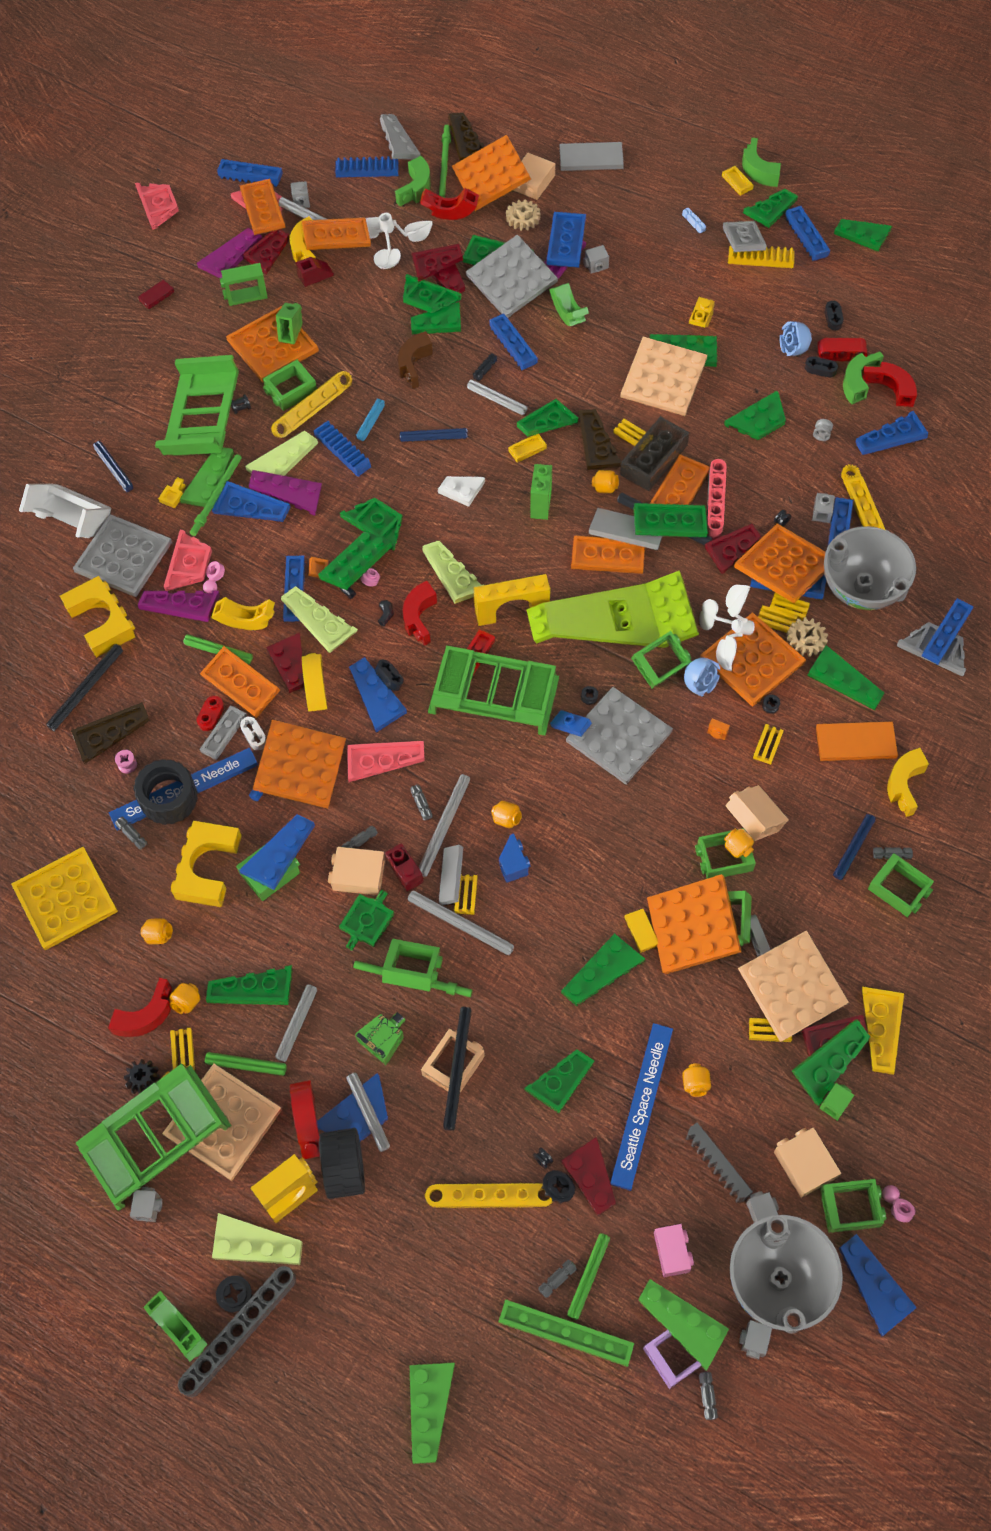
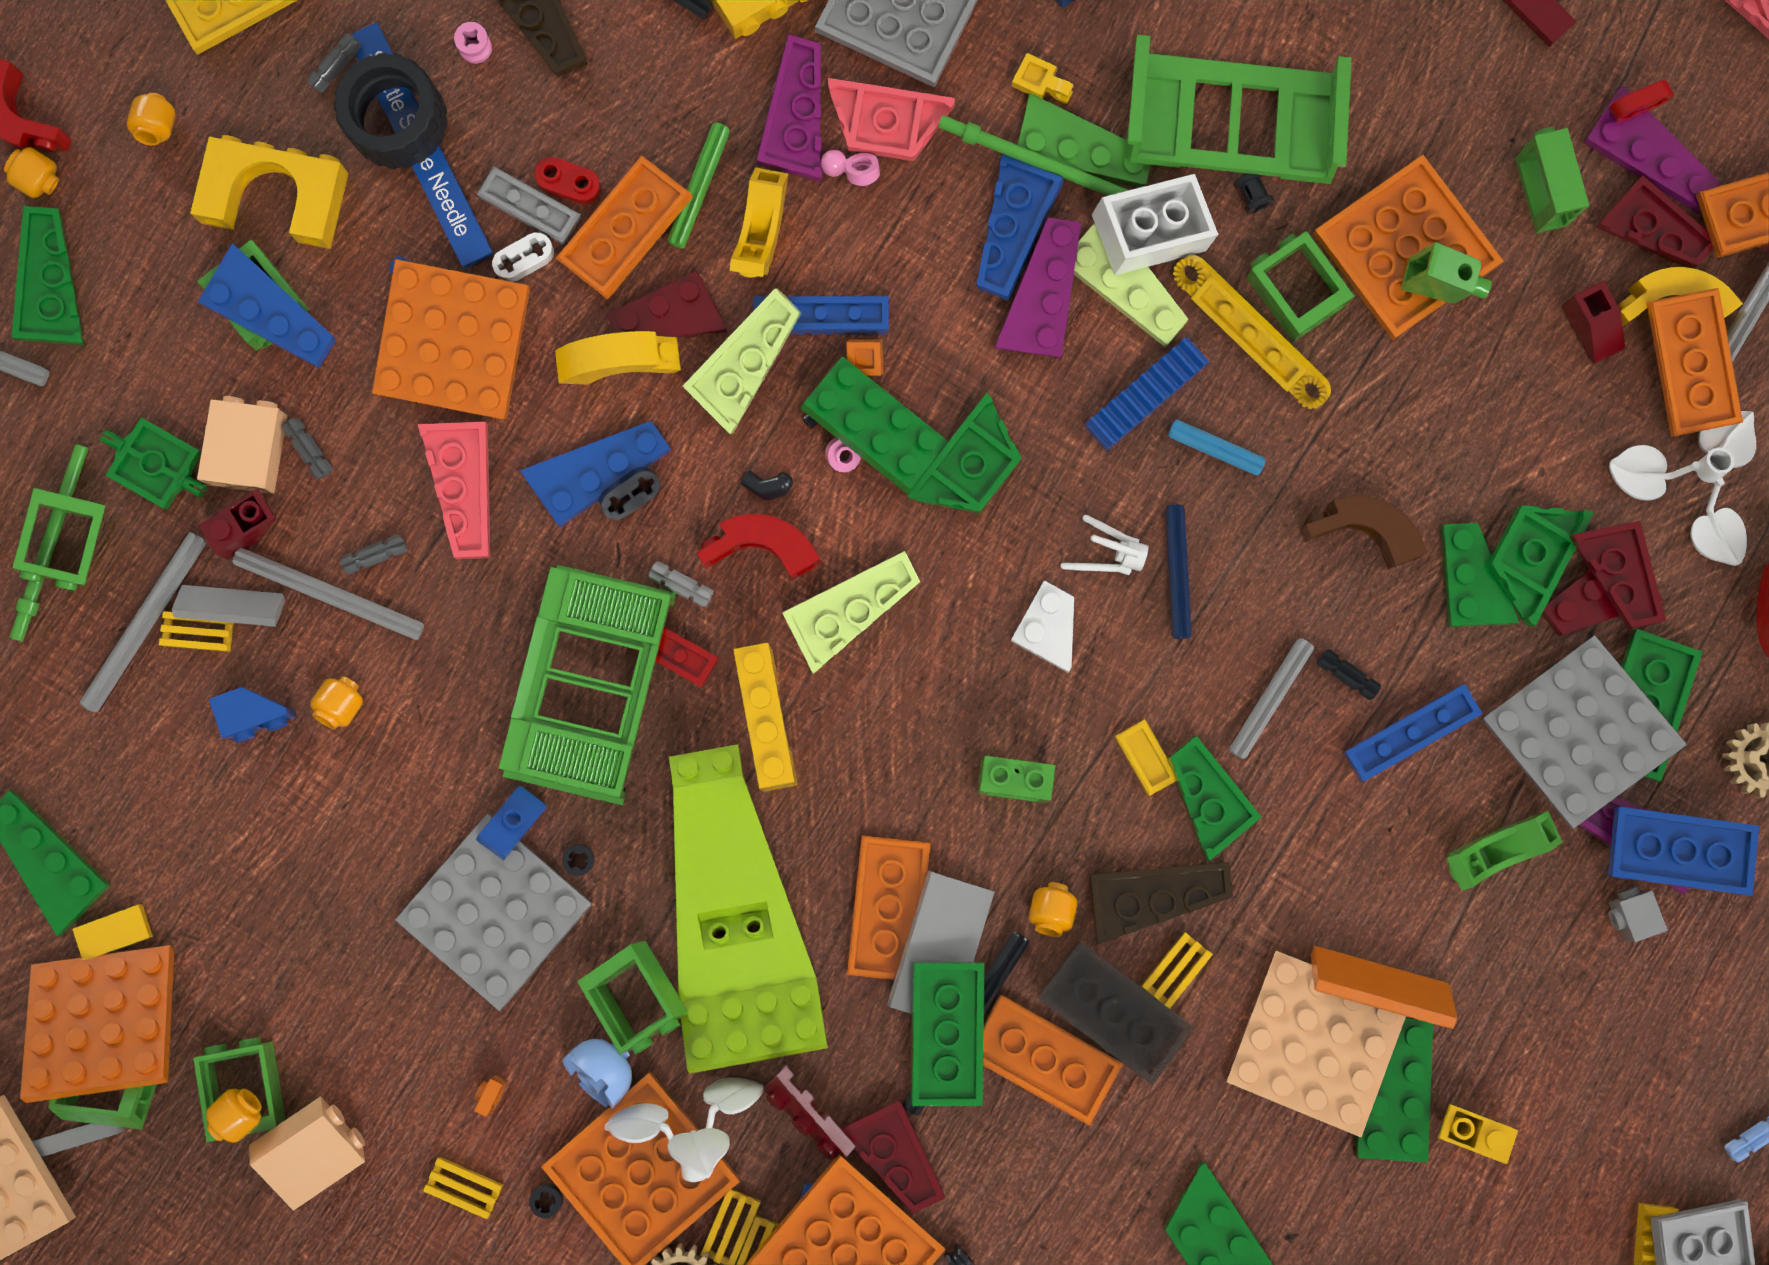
camera: 90 degrees right, 20 degrees up
(207, 252) = (1641, 101): none -> red beam
(256, 439) = (1154, 224): none -> white brick
(424, 454) = (1129, 551): none -> white plant
(439, 651) = (680, 584): none -> light grey axle
(635, 348) = (1383, 987): none -> orange tile
(714, 582) = (806, 1120): none -> dark red wing
(716, 498) = (1023, 1138): coral beam -> none

